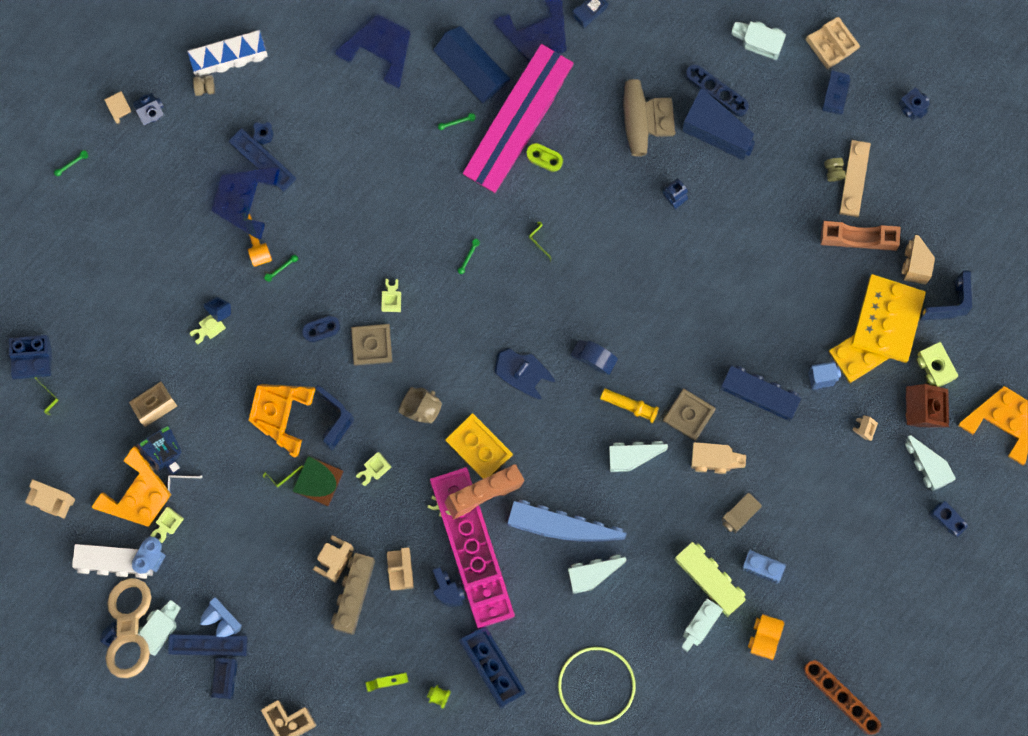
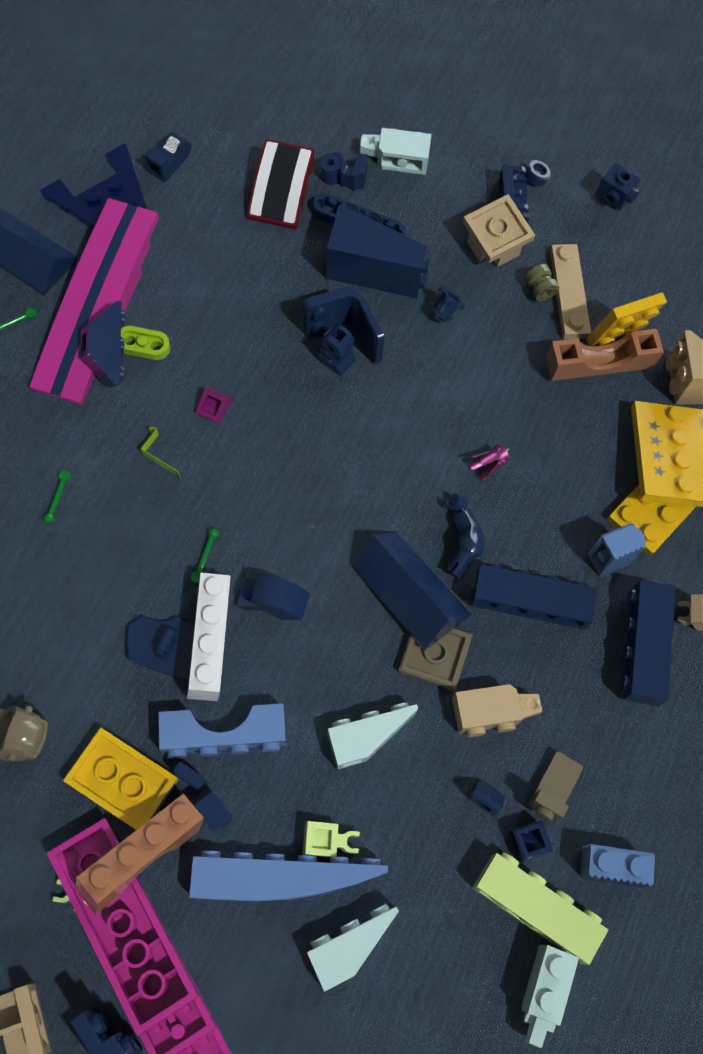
camera: 25 degrees left, 10 degrees down
(518, 156) = (103, 345): none -> dark blue slope
(520, 455) = (190, 777): none -> dark blue tile
(531, 478) = (214, 811): none -> dark blue slope
(548, 331) = (213, 533): none -> green hinge
(549, 372) = (209, 637): none -> white brick
(570, 436) = (182, 734): none -> medium blue arch
(584, 212) = (213, 404): none -> magenta slope
(593, 511) = (323, 840): none -> yellowish green plate
(639, 408) = (356, 660): yellow pin -> none
(645, 117) = (272, 267): dark tan plate -> none
(666, 51) = (281, 184): none -> slope
(683, 369) = (409, 588): none -> dark blue slope
(685, 162) = (344, 308): none -> dark blue piece
(697, 509) = (487, 797): none -> dark blue slope
(708, 45) = (335, 170): none -> dark blue leg
(716, 541) = (531, 841): none -> dark blue slope
(732, 343) = (471, 537): none -> dark blue arm
(761, 173) = (446, 305): none -> dark blue brick
(765, 293) = (497, 456): none -> flat silver piece
(766, 637) = (657, 985): light orange brick -> none
(813, 124) = (497, 231): none -> tan panel
(827, 439) = (648, 643): none -> dark blue brick
(832, 42) = (490, 141): tan slope -> none
(859, 77) = (537, 173): none -> dark blue tile
(884, 217) = (626, 320): none -> yellow plate

